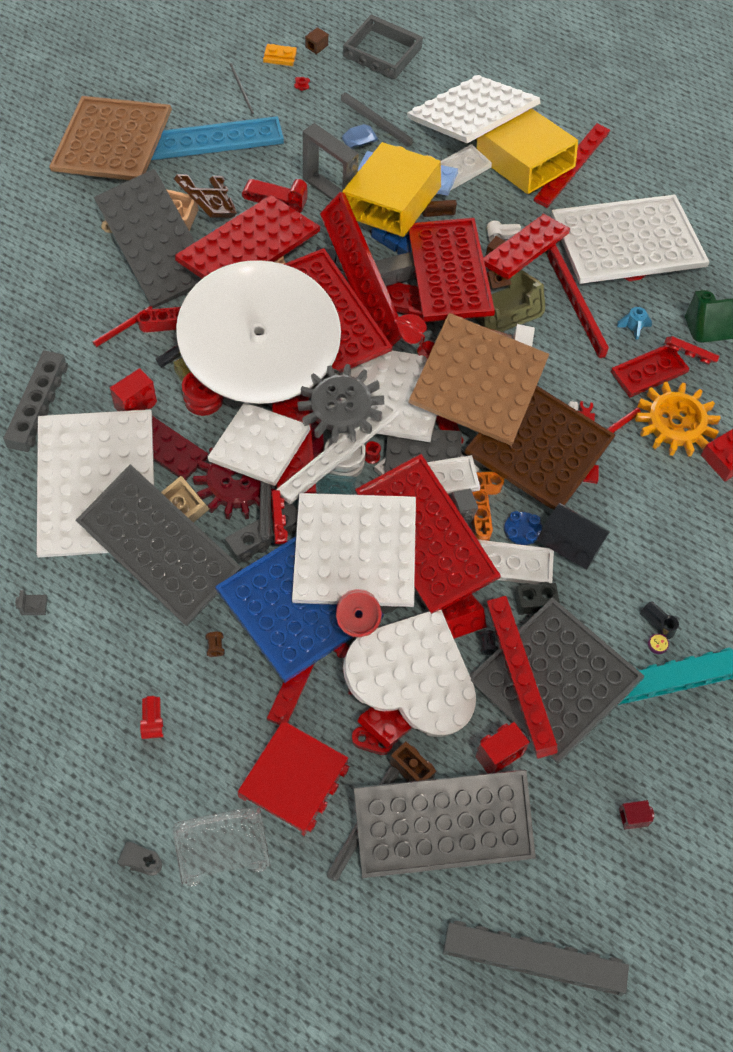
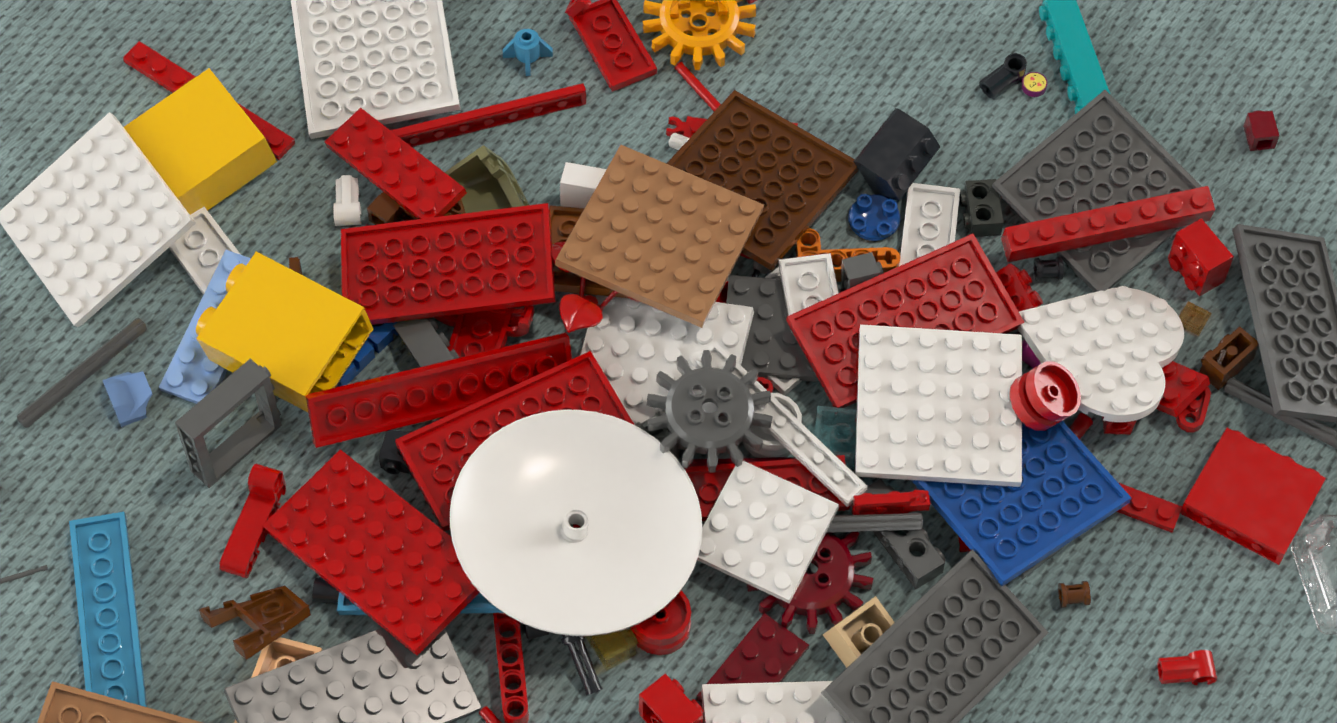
camera: 85 degrees left, 0 degrees up
(453, 749) = (1194, 318): none -> clear orange tile

